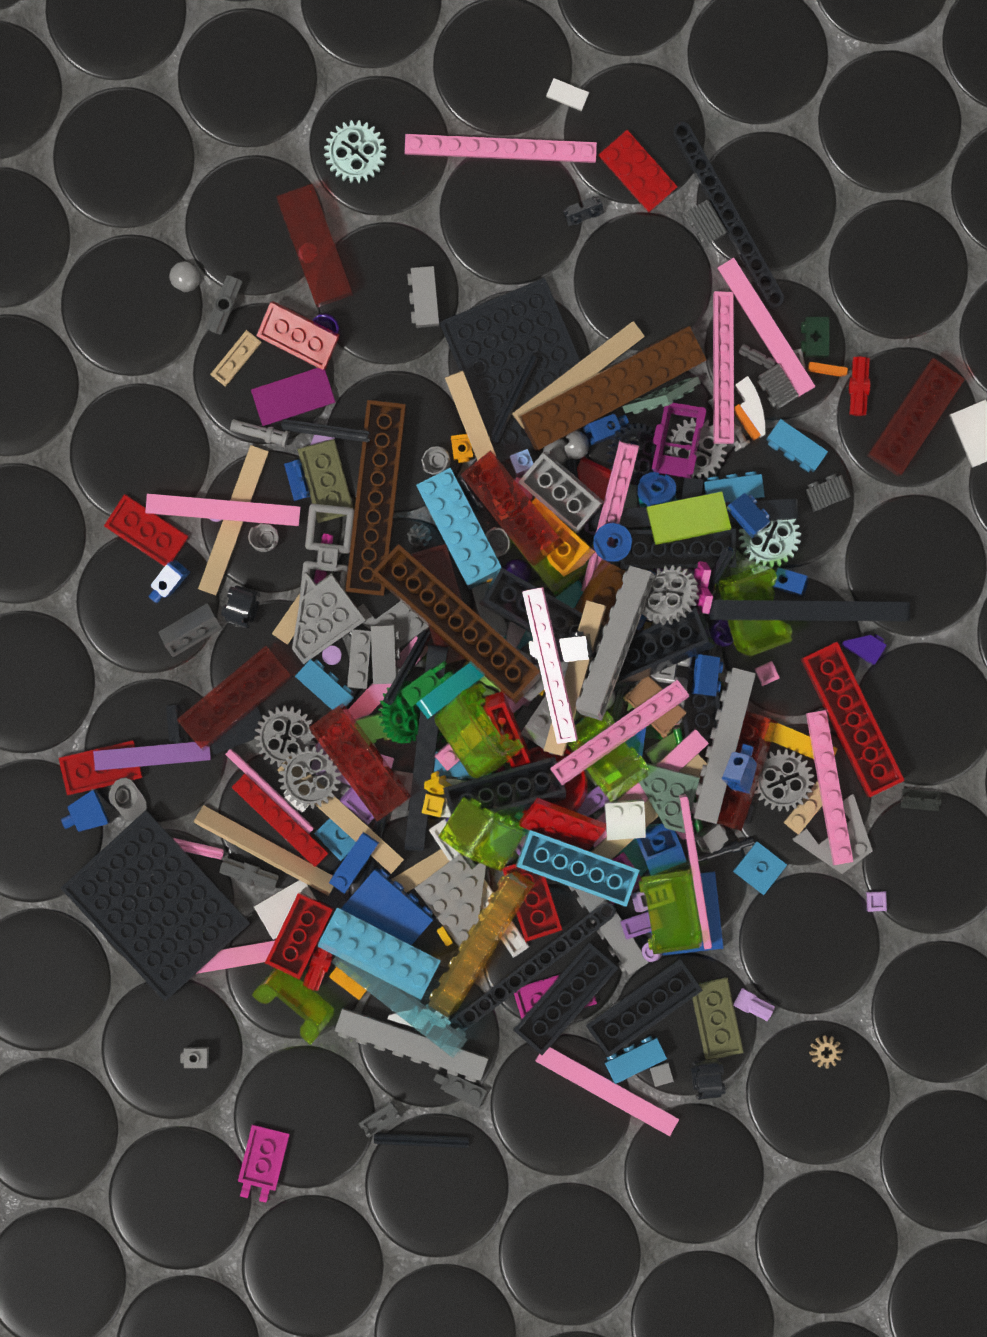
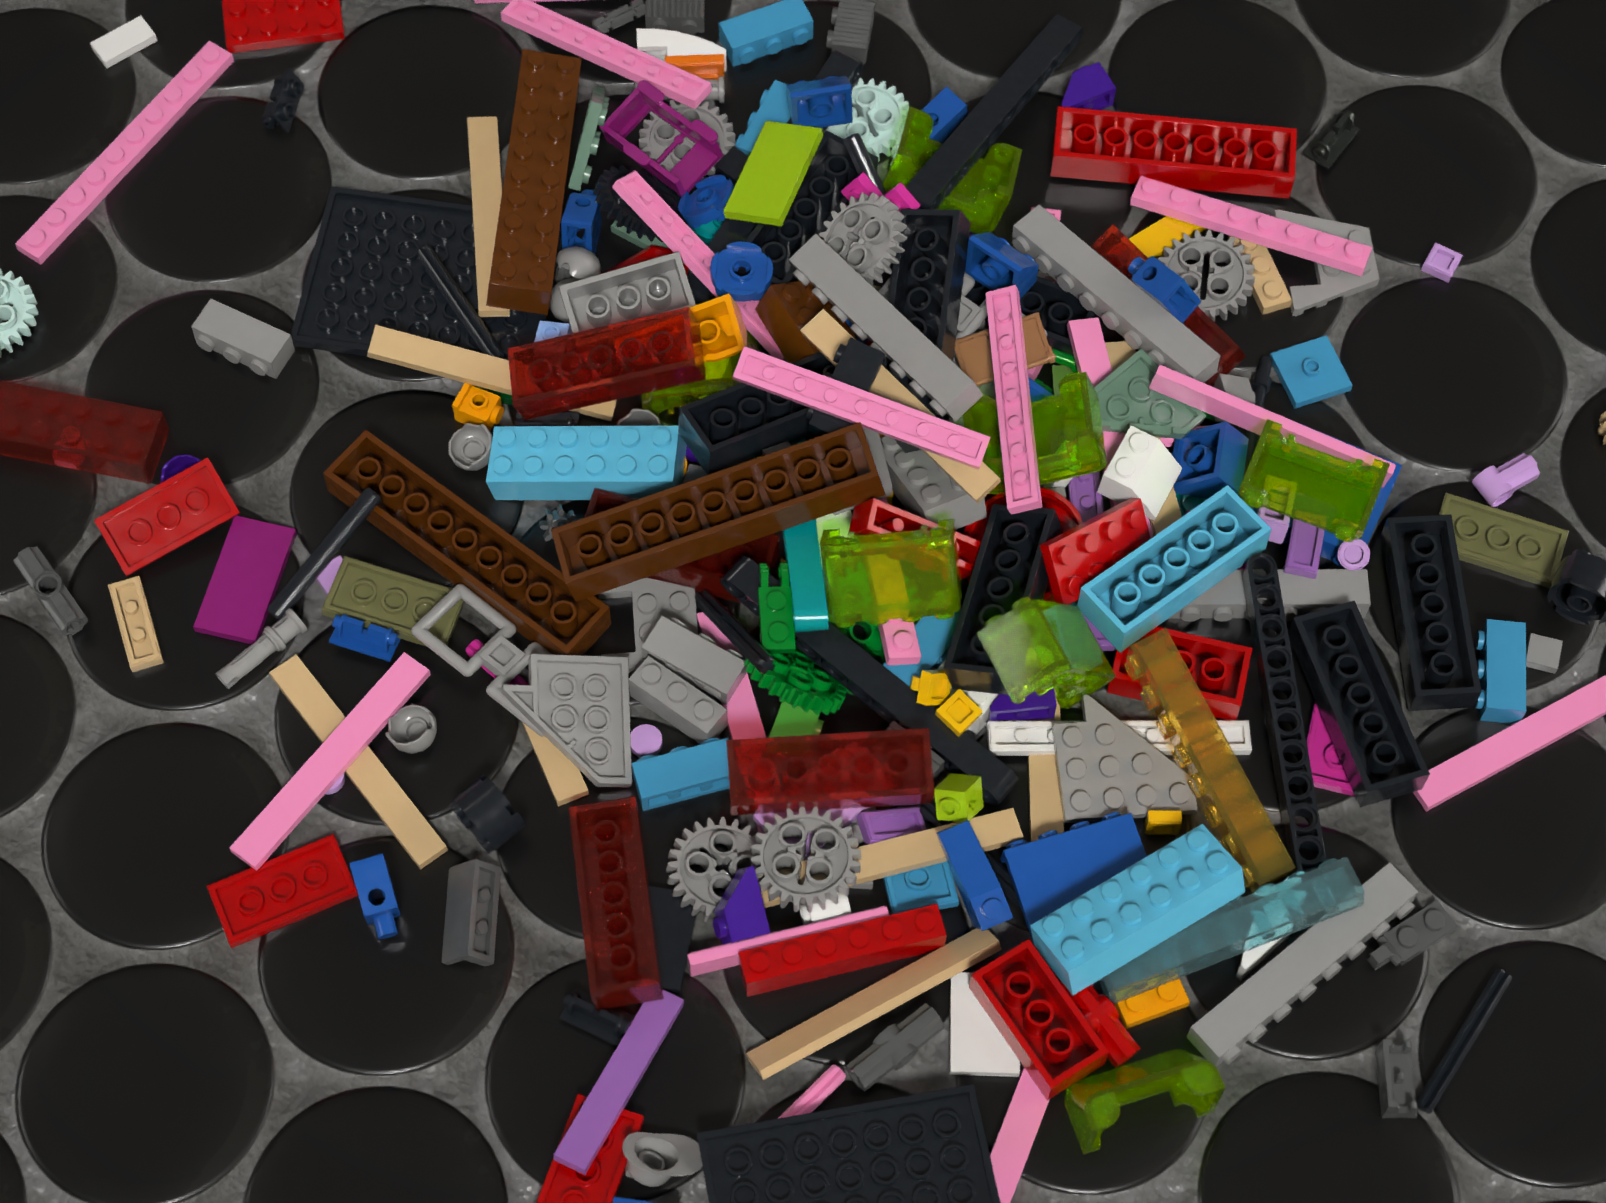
camera: 55 degrees left, 25 degrees down
(265, 761) = (741, 909): none -> dark purple slope
(391, 830) = (958, 797): none -> lime brick

